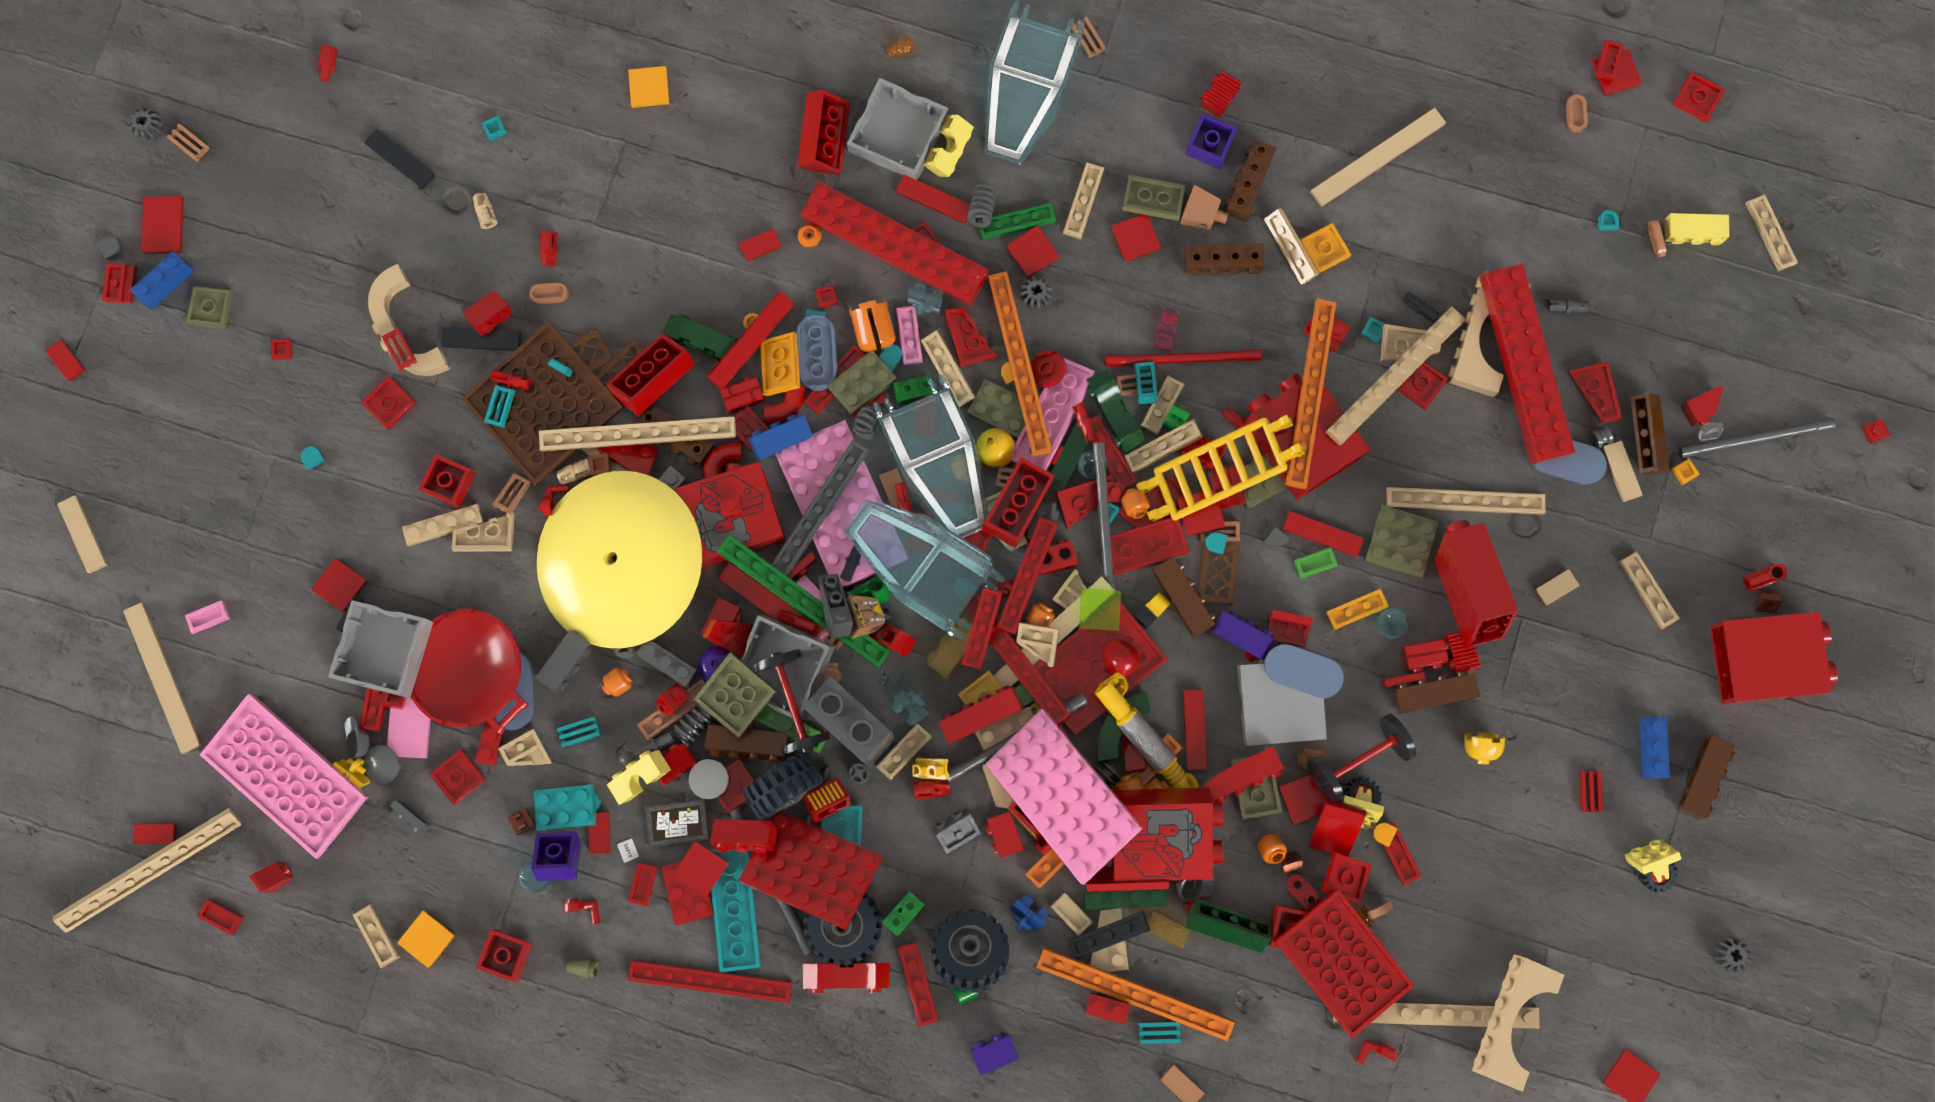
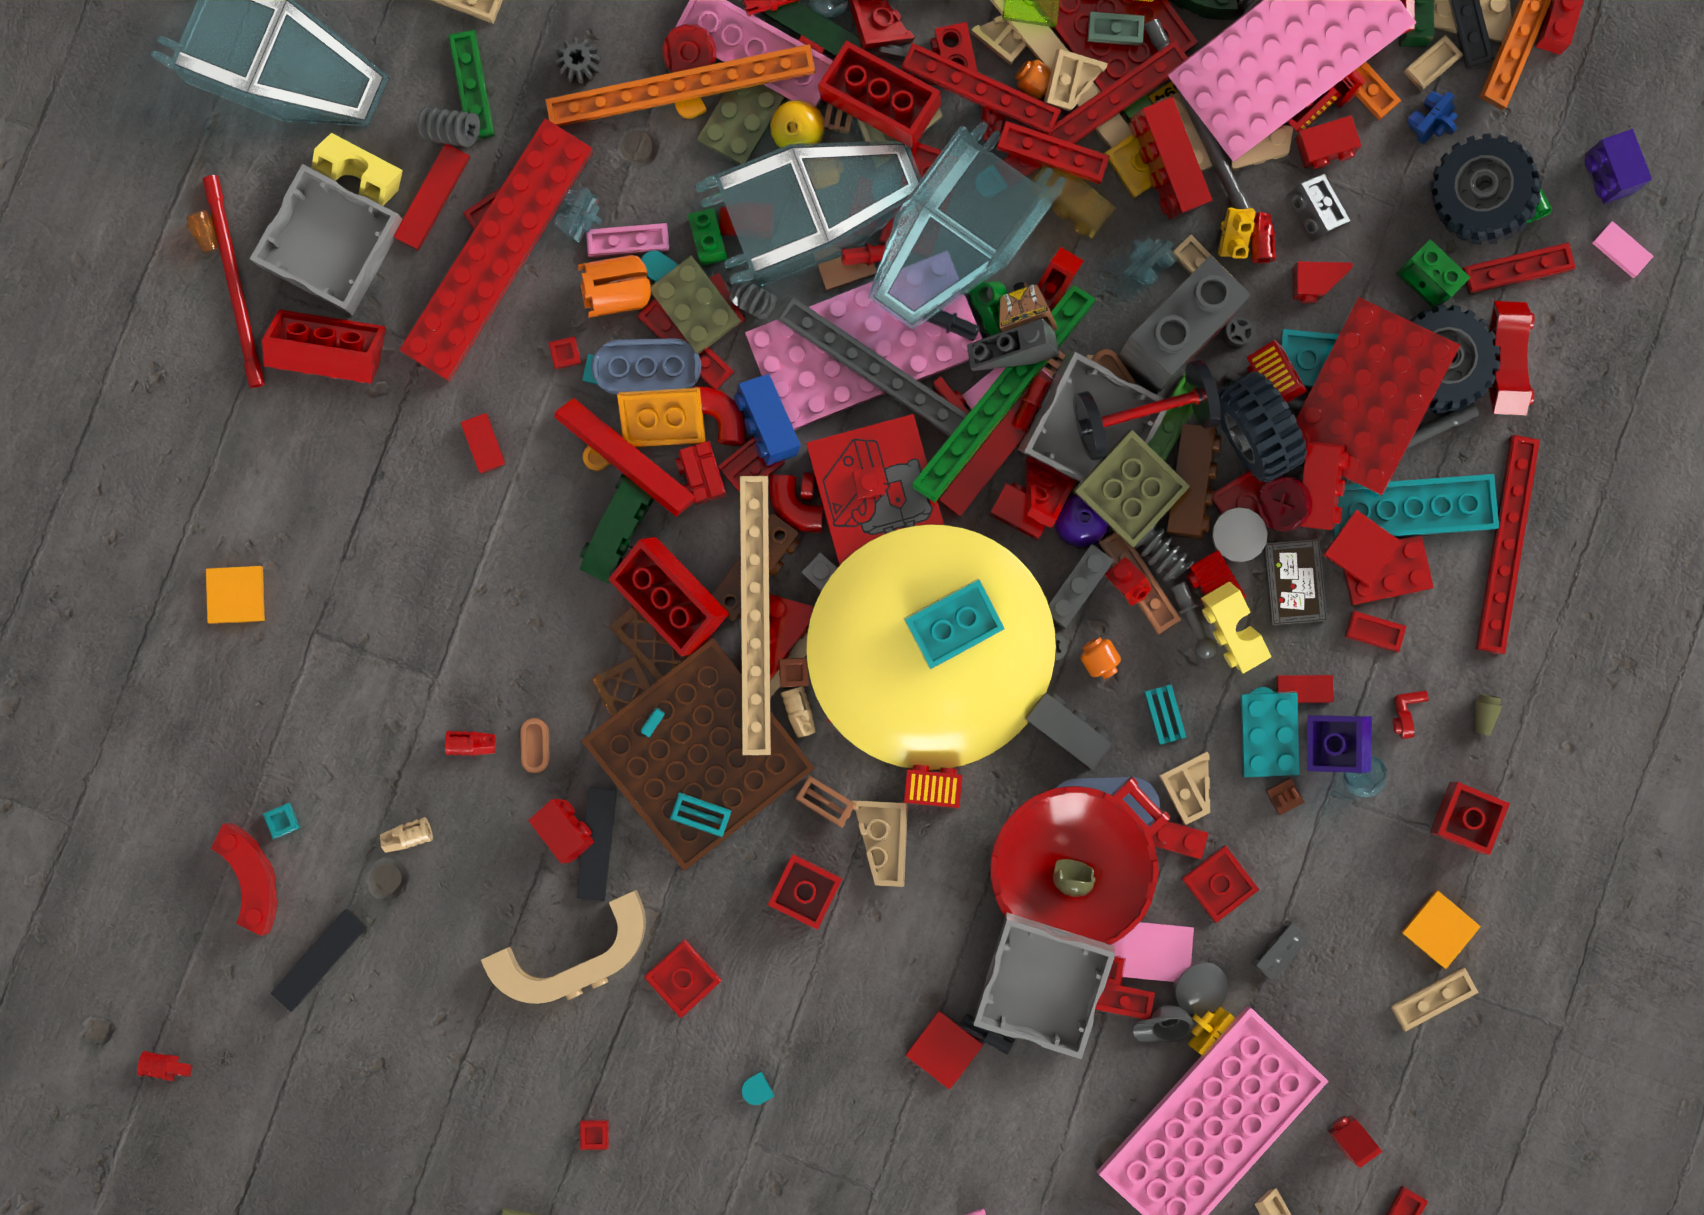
camera: 90 degrees left, 5 degrees up
(406, 363) = (631, 946): red tile -> none
(441, 525) = (864, 901): tan plate -> none
(456, 111) = (254, 876): none -> red brick
(458, 668) = (1073, 877): none -> olive hair
(511, 379) = (663, 795): red axle -> none
(522, 567) = (933, 787): none -> red brick
(547, 503) = (845, 751): red plate -> none
(627, 850) = (1328, 651): white sticker -> none
(629, 568) = (954, 623): none -> teal plate
(729, 809) = (1284, 503): none -> dark red tile
(811, 241) = (477, 381): orange plate -> none
(900, 830) = (1315, 279): none -> red slope
(924, 54) = (251, 362): none -> red piece
(935, 1063) = (1622, 249): none -> bright pink tile
(948, 367) = (674, 189): tan plate -> none
(966, 339) = (640, 160): red wing -> none
(1032, 251) = (517, 64): red tile -> none
(1078, 671) = (1115, 28): none -> sand green plate

